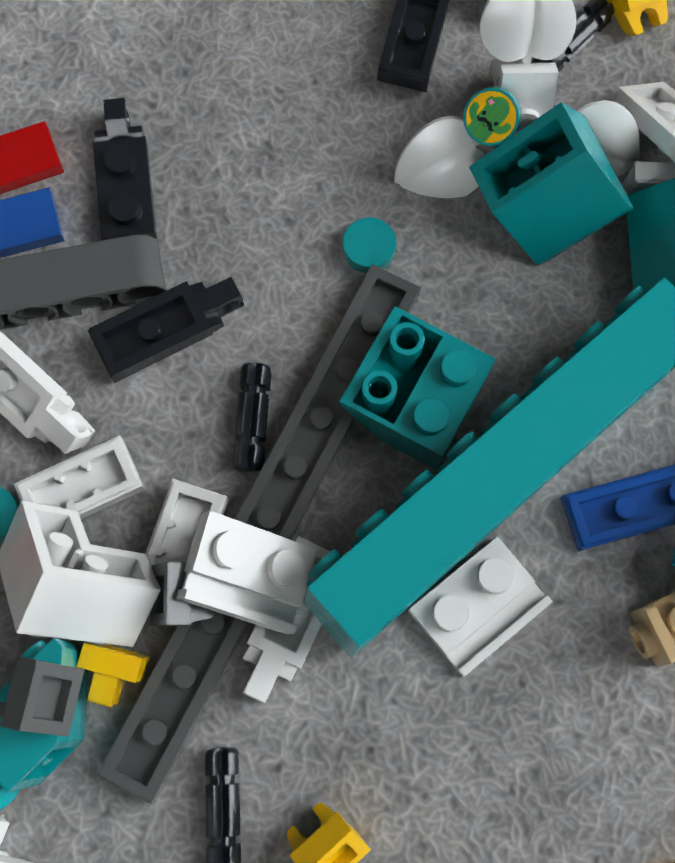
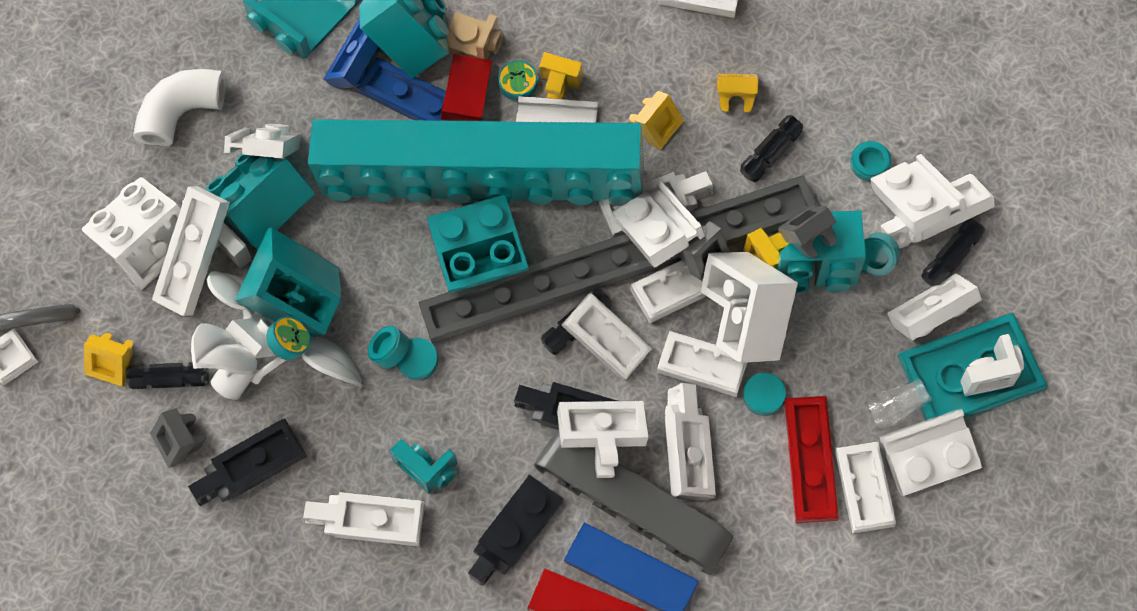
camera: 130 degrees left, 5 degrees down
(106, 311) = (603, 427): none -> white plate
(202, 421) = (606, 337): none -> white plate
(259, 143) = (416, 464): none -> teal bracket
(263, 71) = (369, 518): none -> white hinge
(377, 717) = (658, 119): none -> yellow tile
(405, 226) = (388, 347): none -> teal tile
(533, 665) = (560, 74): none -> yellow tile
(574, 623) = (517, 80): none -> tile
(611, 551) = (466, 89): none -> red tile

